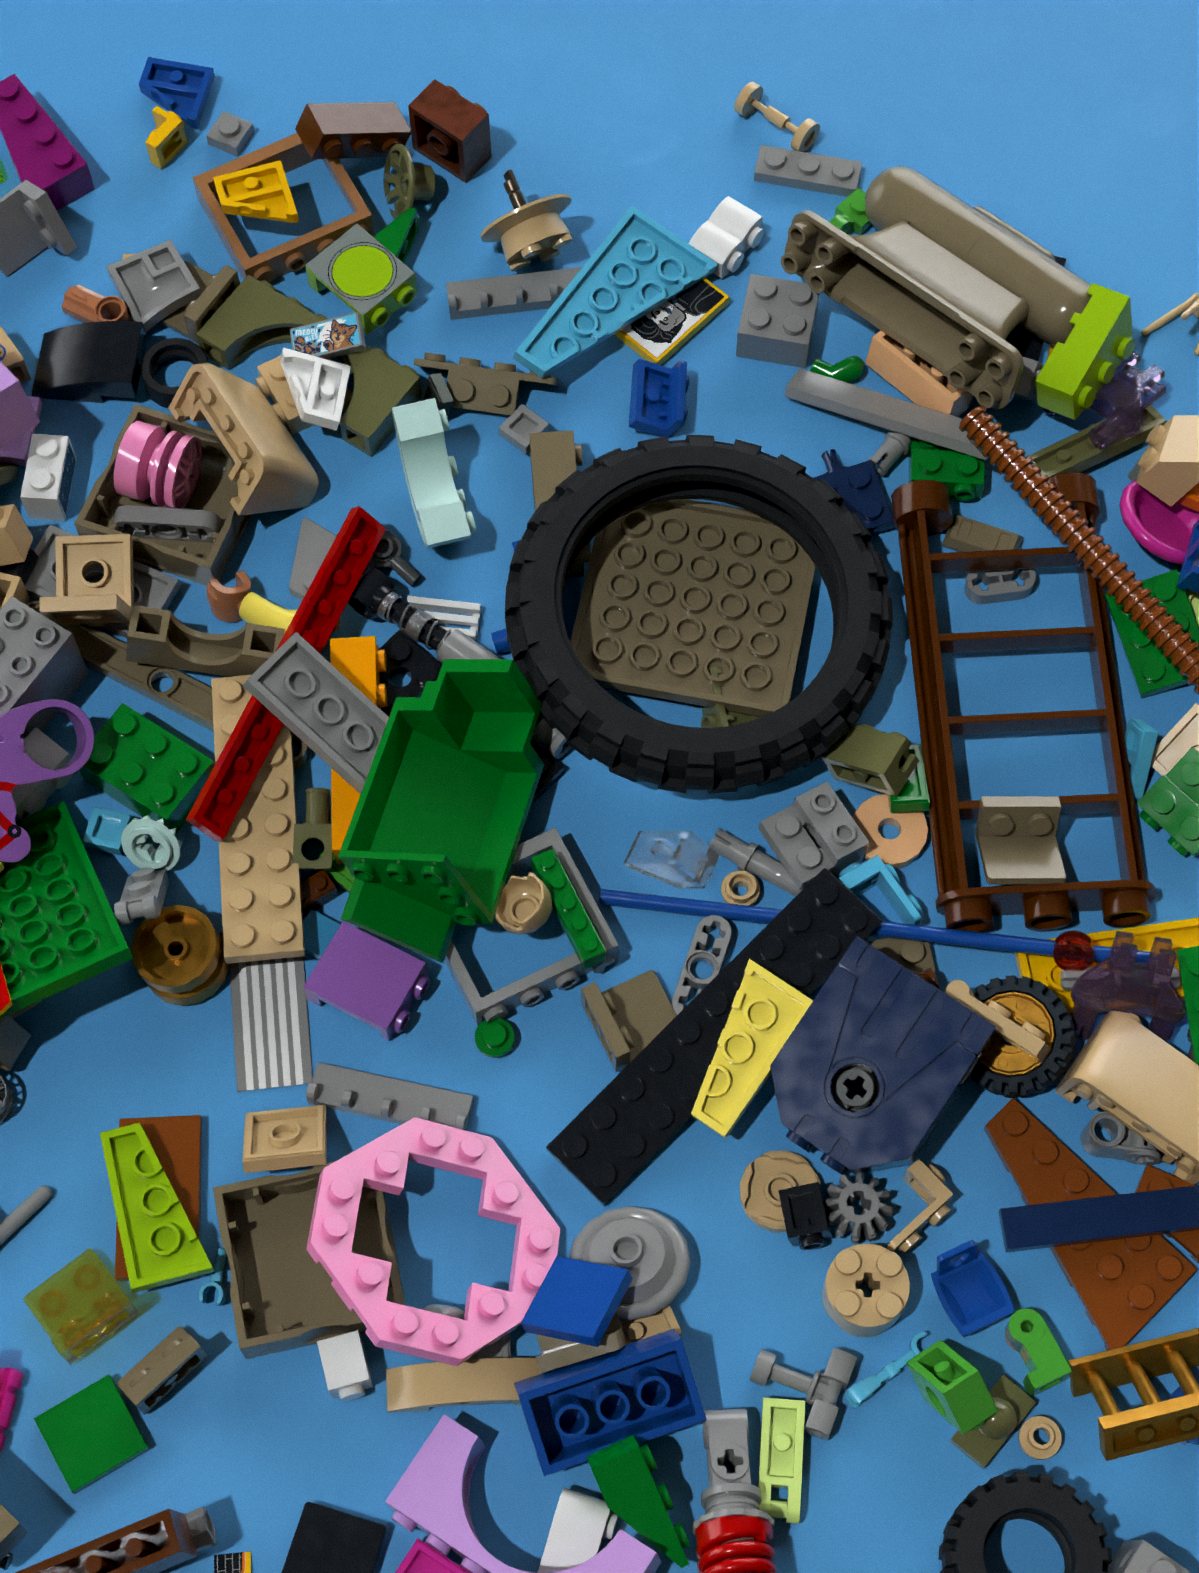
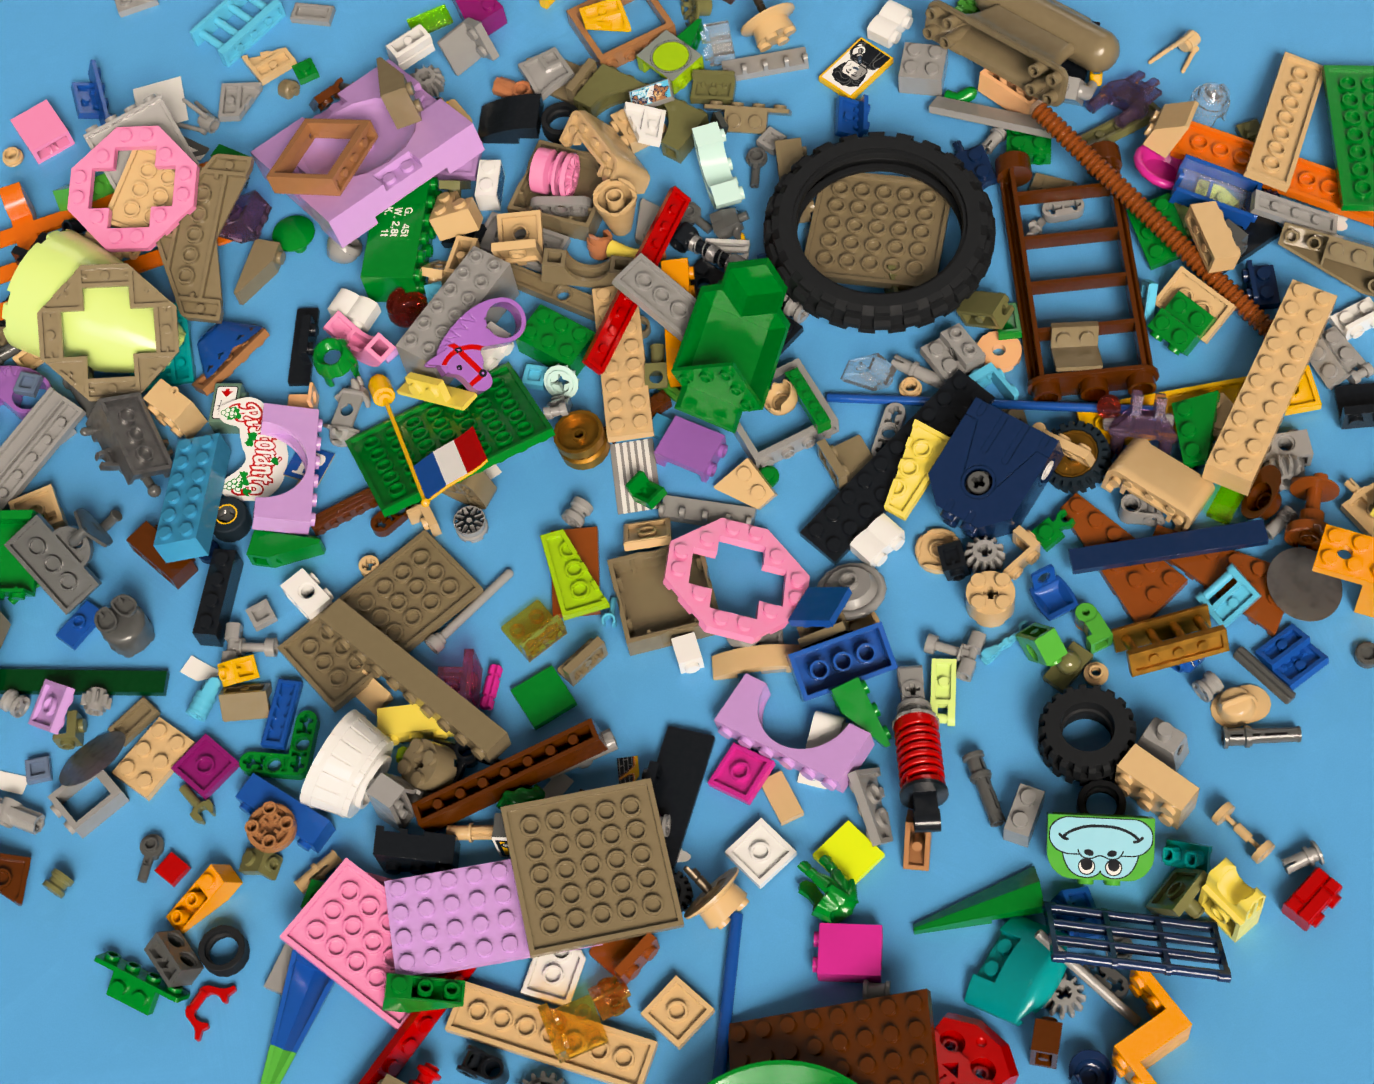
camera: 10 degrees right, 5 degrees down
(166, 1089) = (577, 512): none -> light grey wheel
(258, 532) = (616, 204): none -> tan cone
(285, 1055) = (645, 491): none -> green bracket
(431, 327) = (713, 86): none -> olive bracket
(442, 249) = (718, 42): none -> clear brick
(447, 573) = (728, 223): none -> dark grey piece
(460, 1054) = (747, 485): none -> tan wing
(497, 459) = (756, 159): none -> dark grey plate
(621, 282) = (825, 53): medium azure wing -> none
(678, 1171) = (878, 541): none -> white brick
(956, 616) = (1035, 228): none -> light grey piece
(967, 1169) = (1049, 531): none -> green plate
(1089, 355) = (1112, 73): lime wedge -> none

